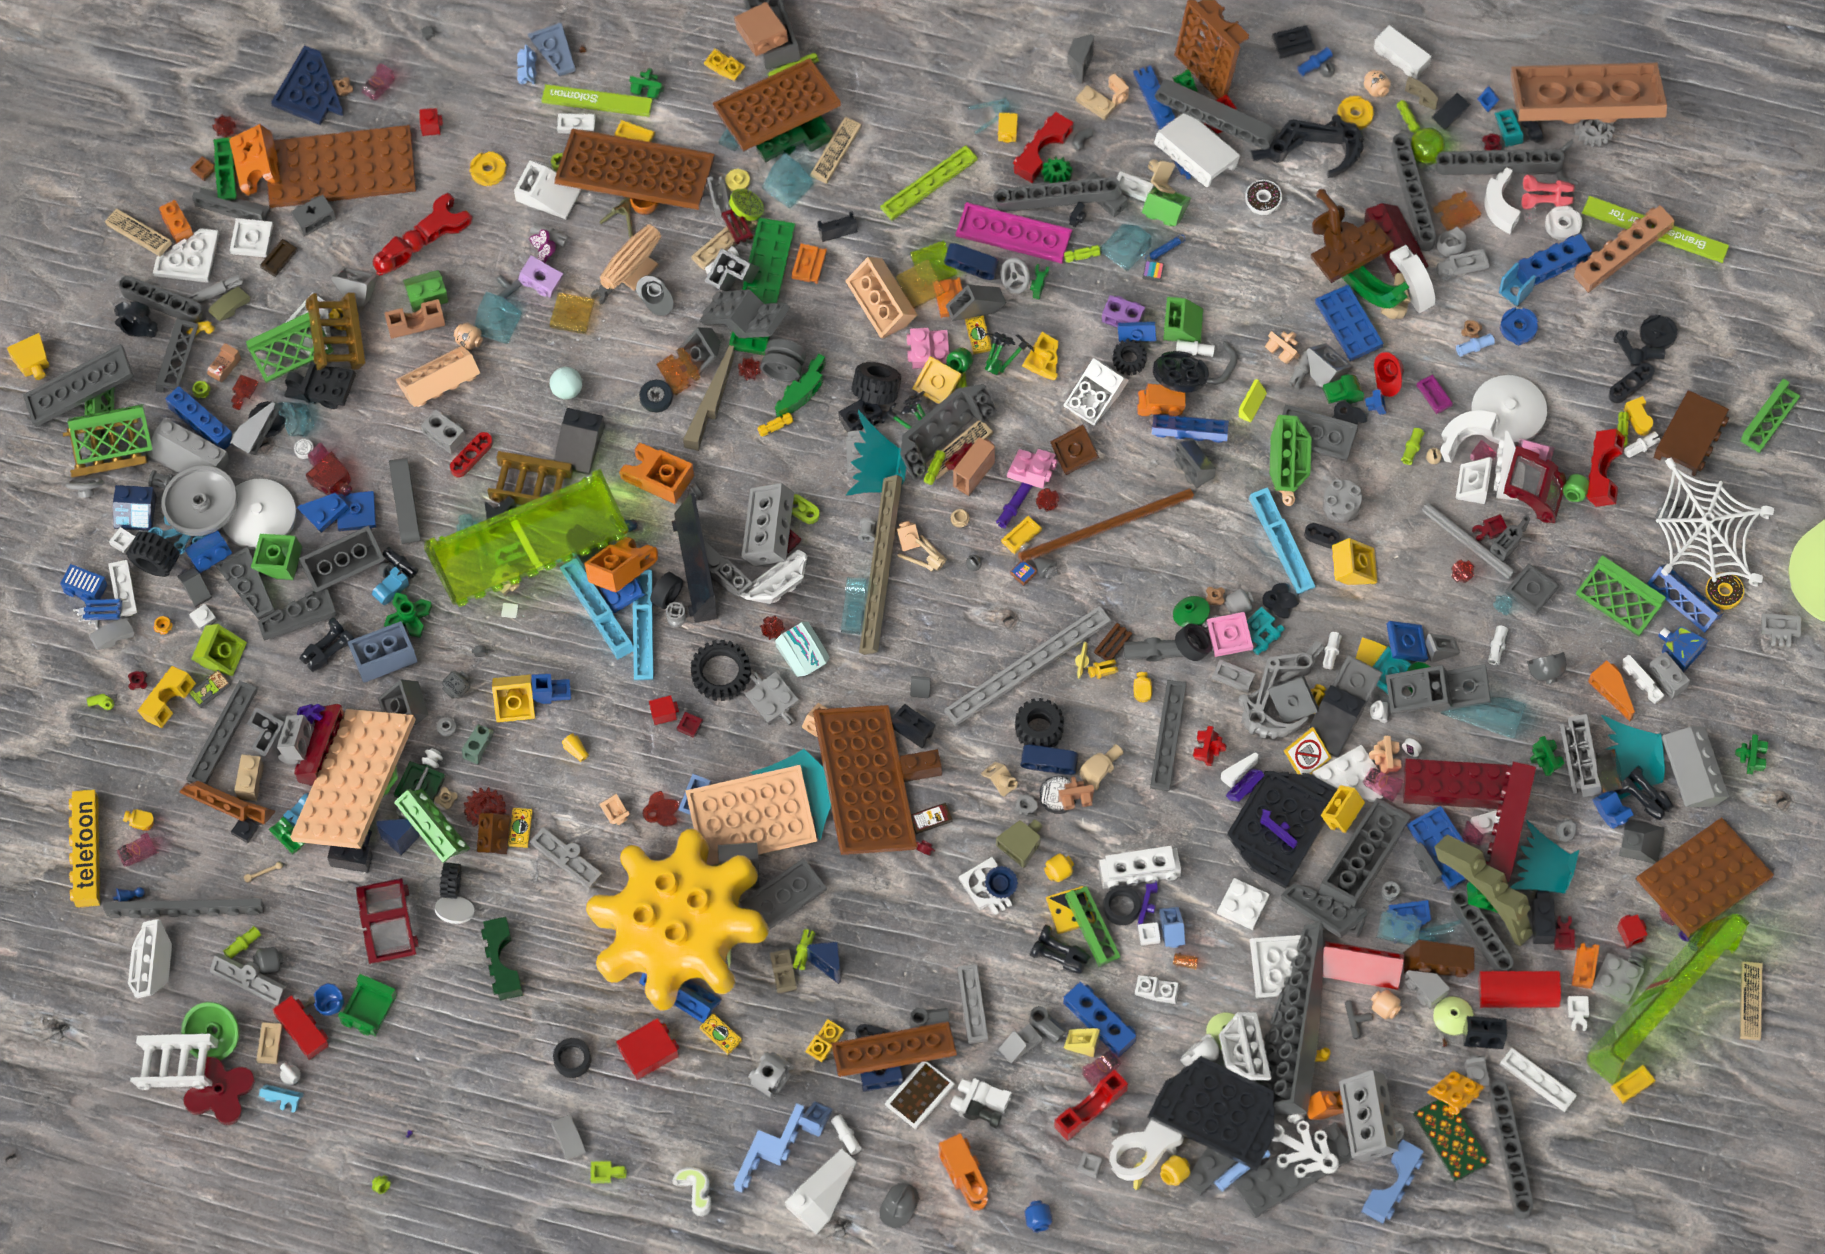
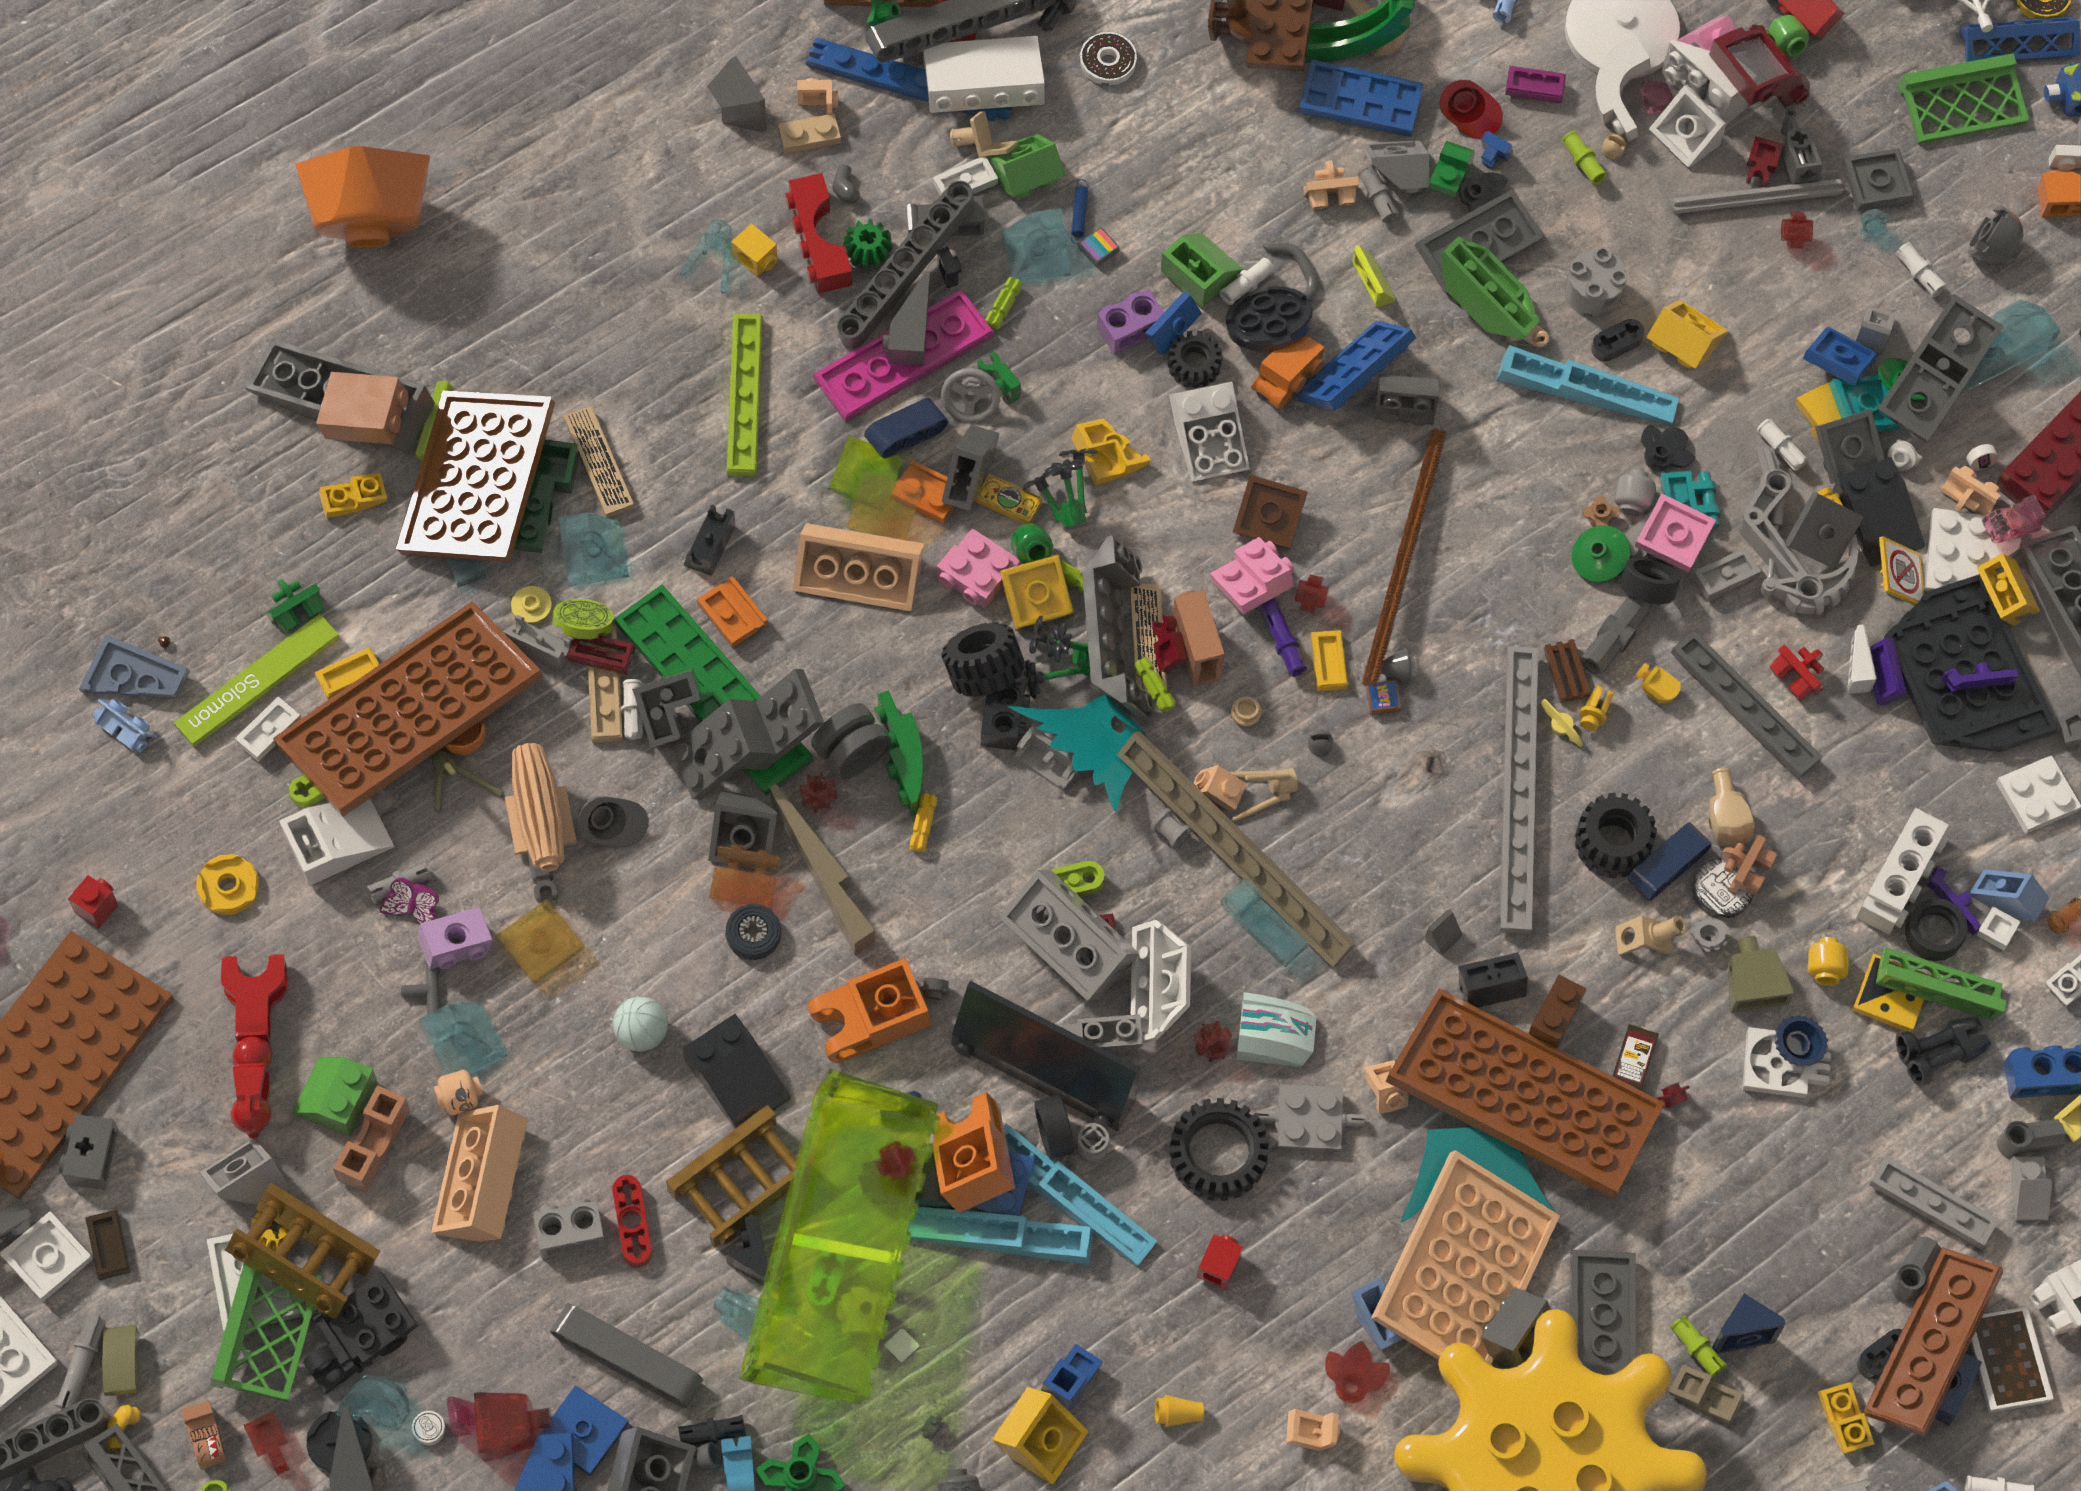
camera: 55 degrees left, 0 degrees up
(584, 532) = (895, 1160): none -> clear red gear
(689, 724) = (1264, 1245): dark red plate -> none
(1027, 221) = (909, 327): none -> dark grey slope

